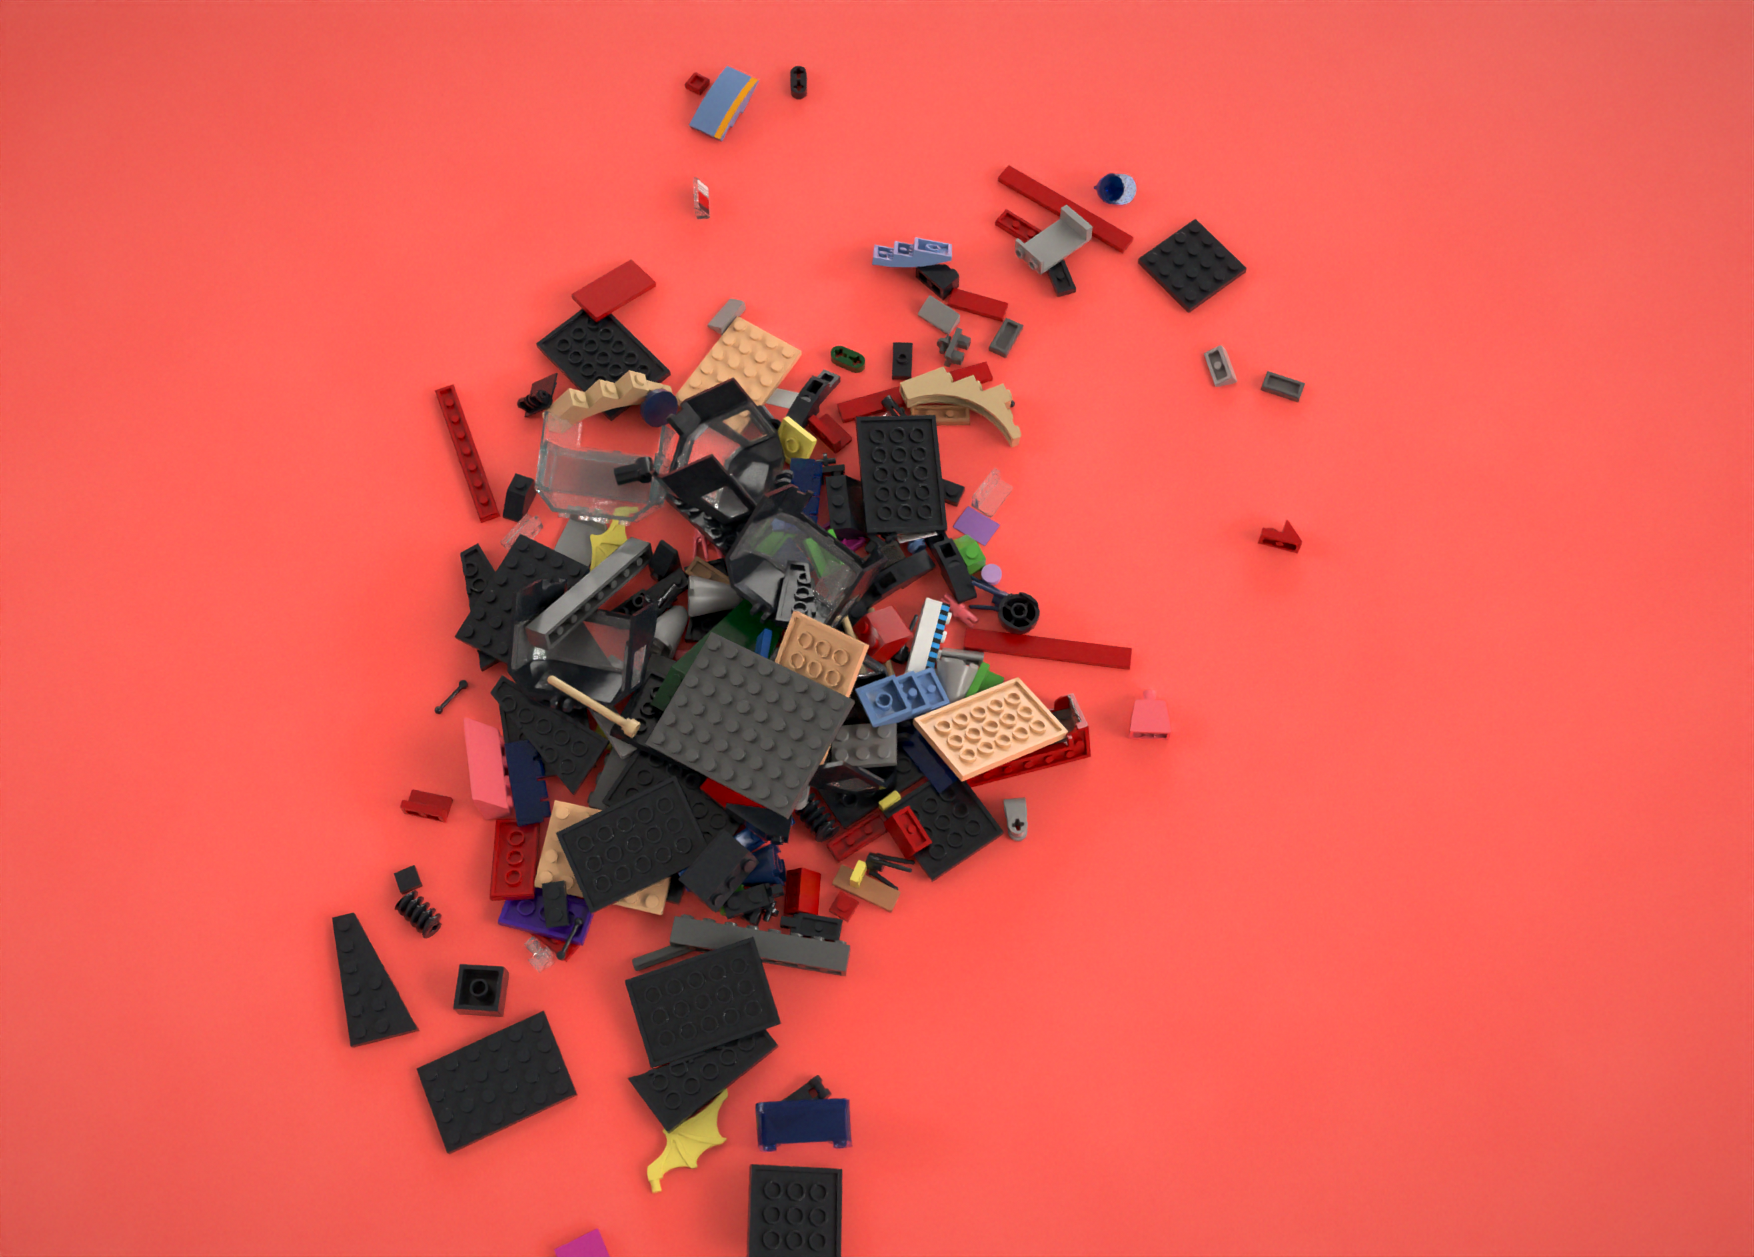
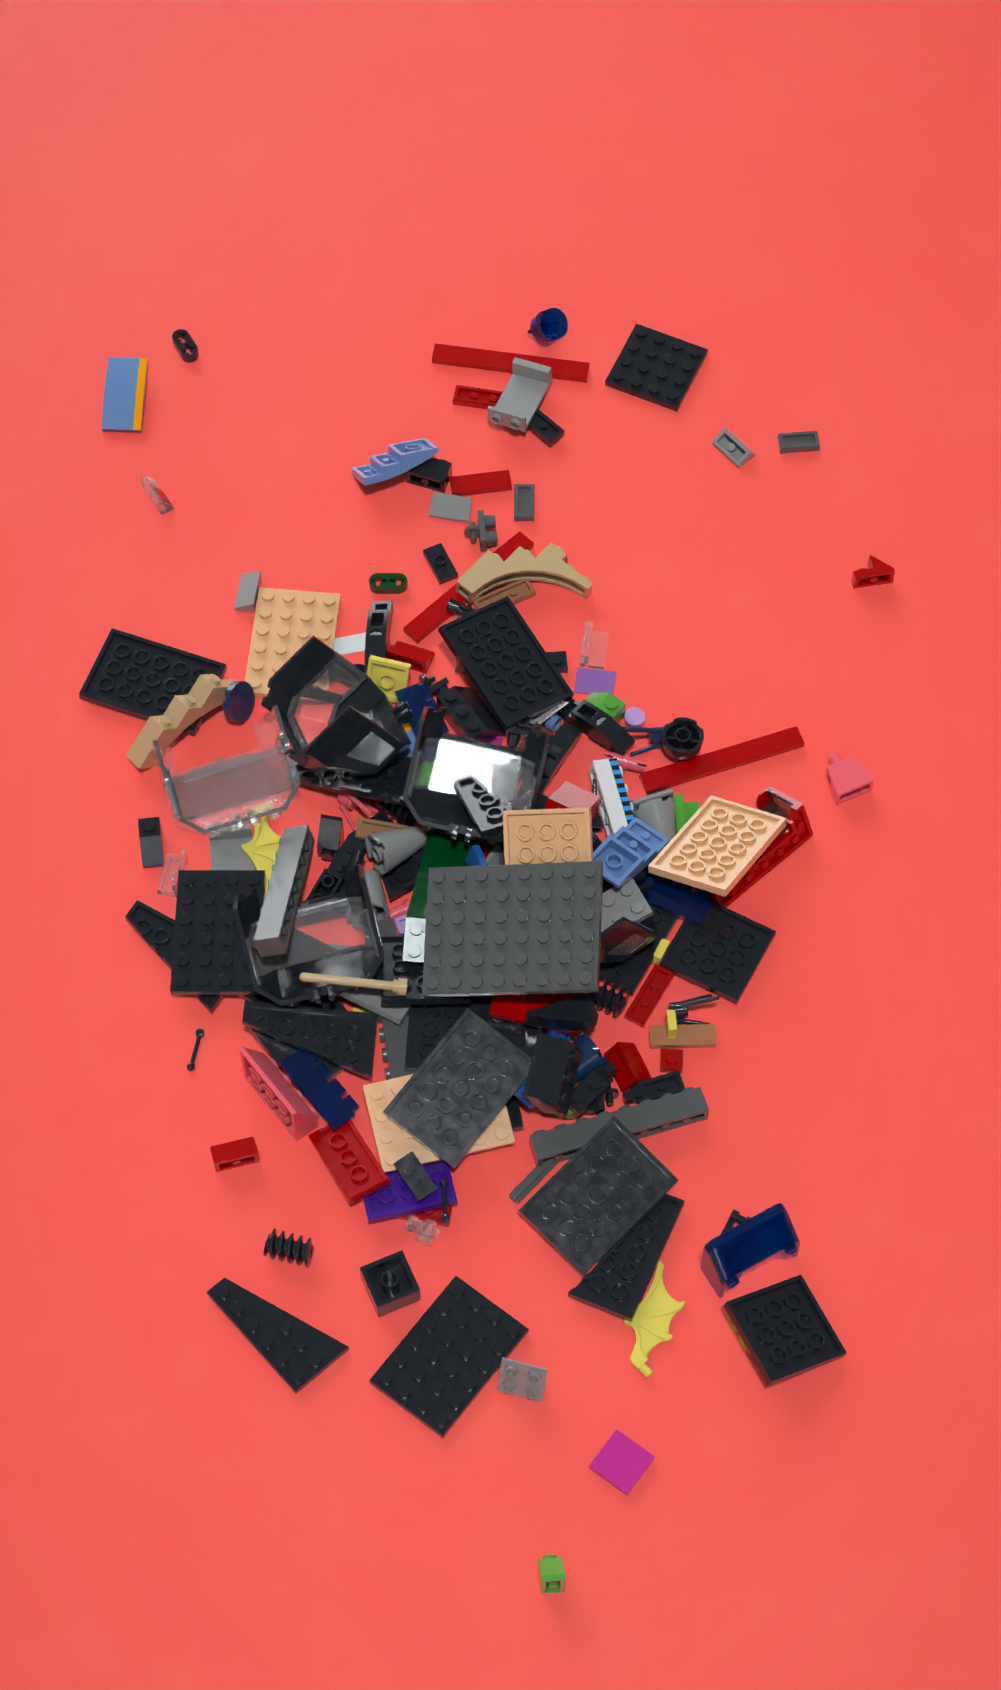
camera: 30 degrees left, 5 degrees down
(408, 879) = (257, 1226): black tile -> none
(467, 453) = (71, 824): red tile -> none
(534, 1134) = (522, 1379): none -> light grey hinge
(539, 397) = (113, 740): black hinge -> none
(613, 290) = (125, 613): red tile -> none
(635, 472) = (257, 765): black piece -> none
(697, 83) = (84, 386): red tile -> none
(907, 832) = (693, 970): red panel -> none
(1016, 815) = (779, 914): light grey piece -> none

